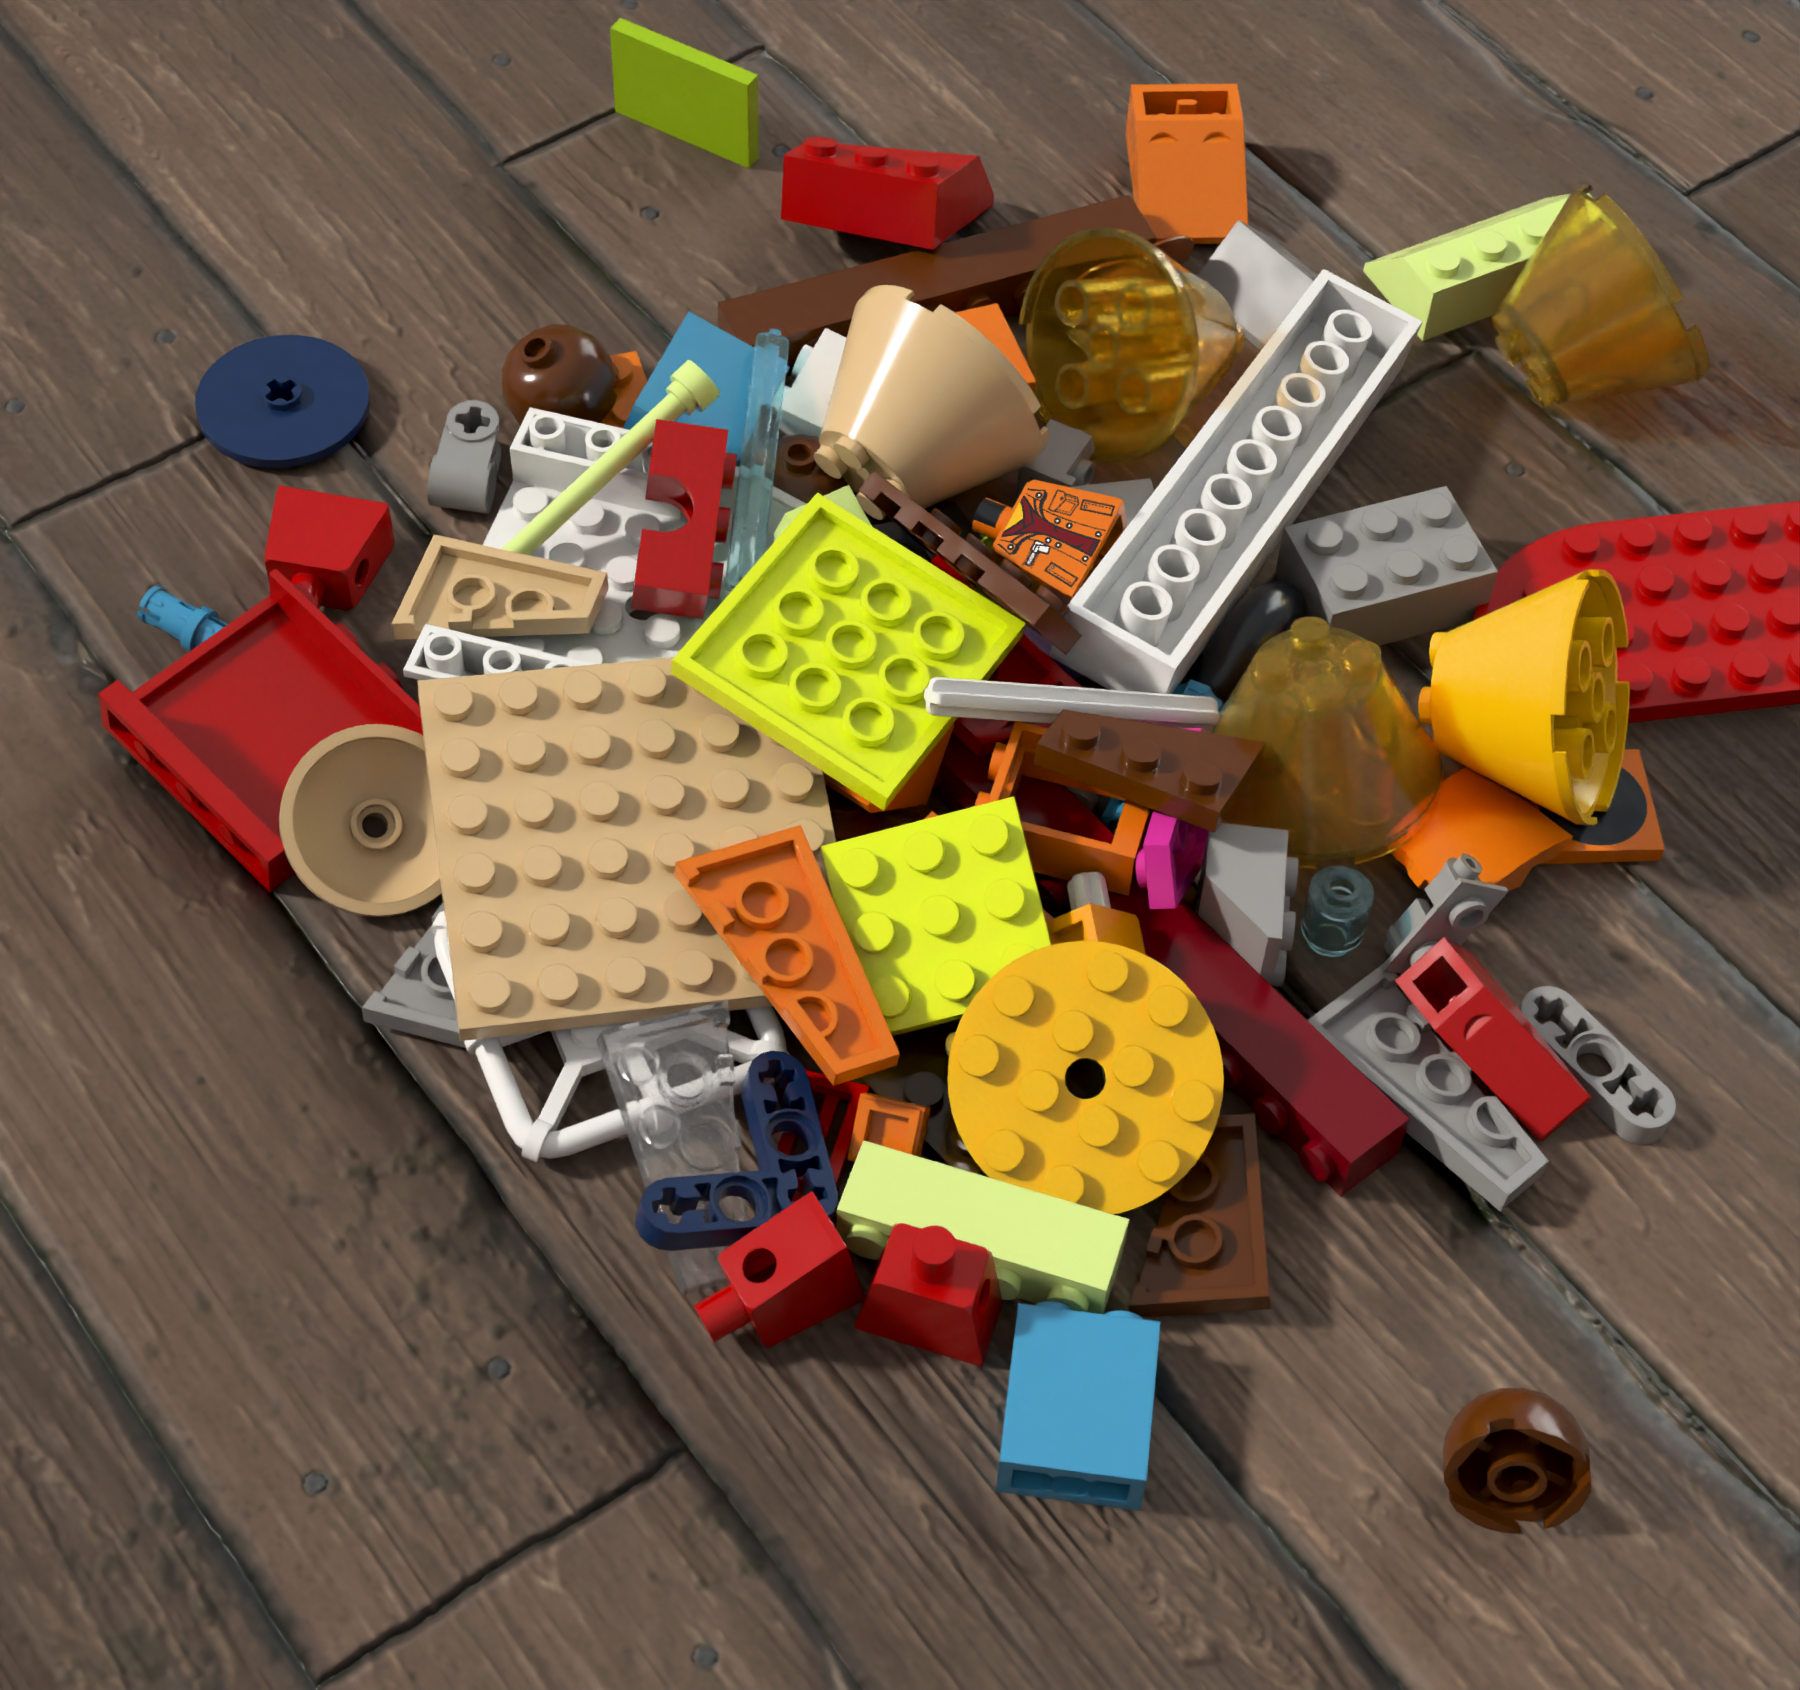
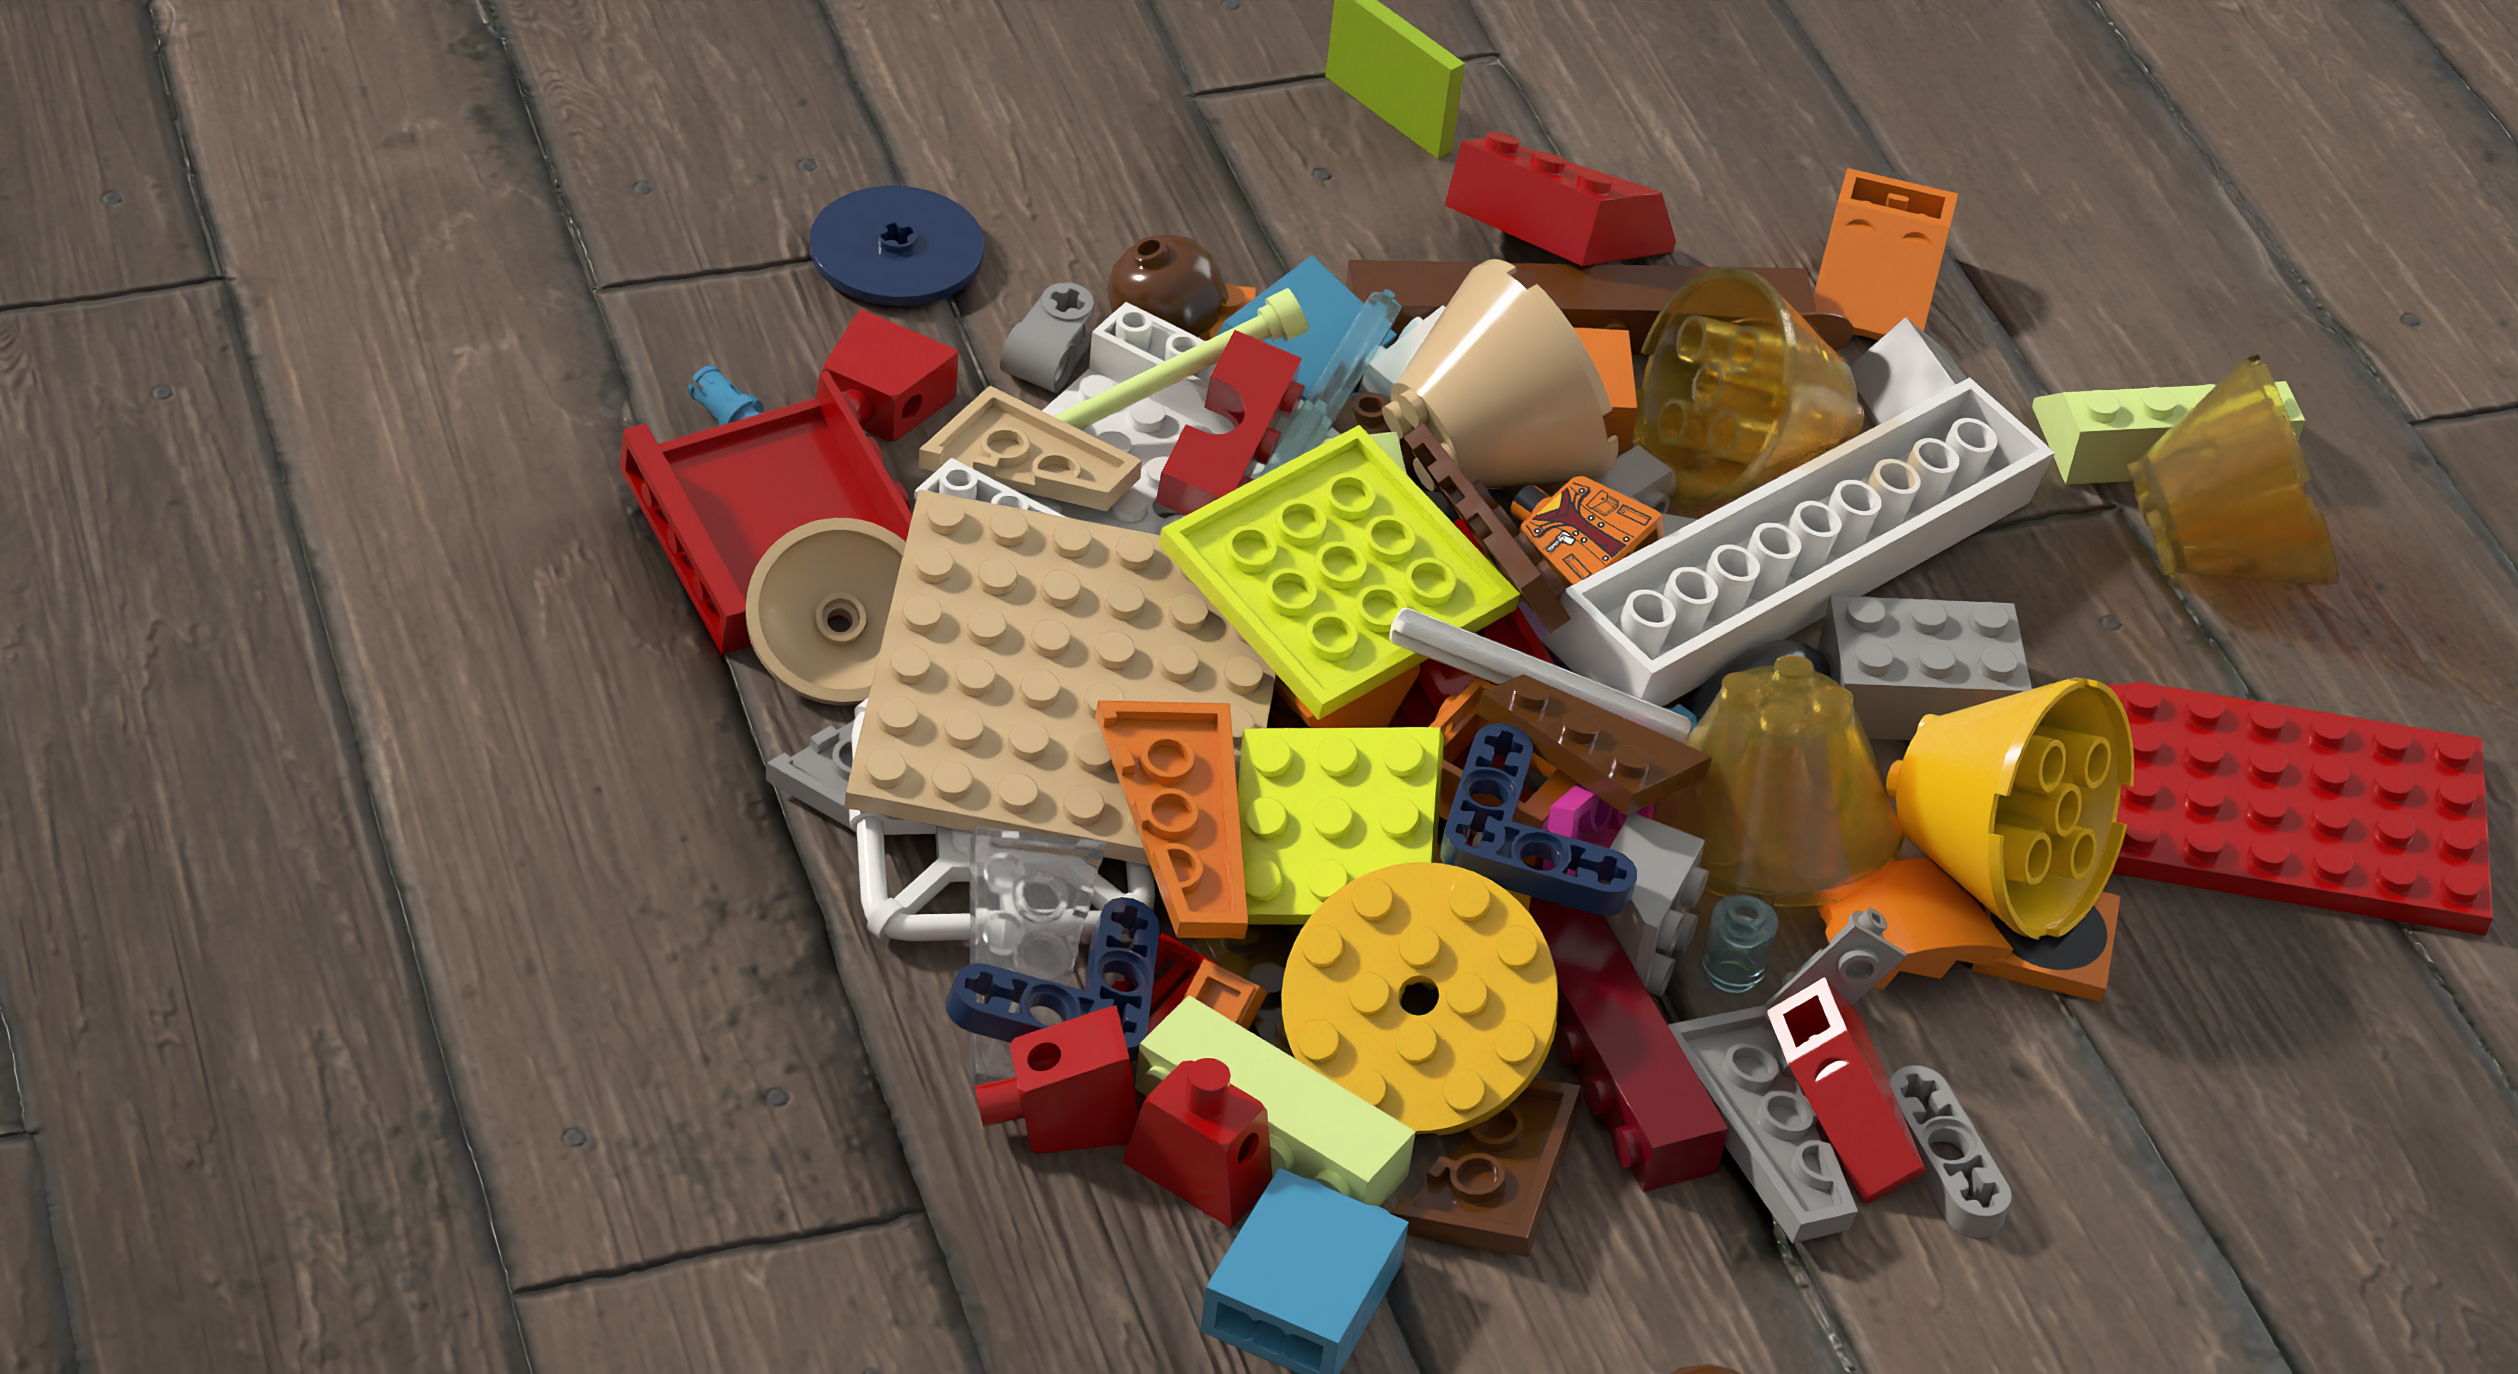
camera: 15 degrees right, 10 degrees down
(1115, 896) = (1508, 842): none -> dark blue beam

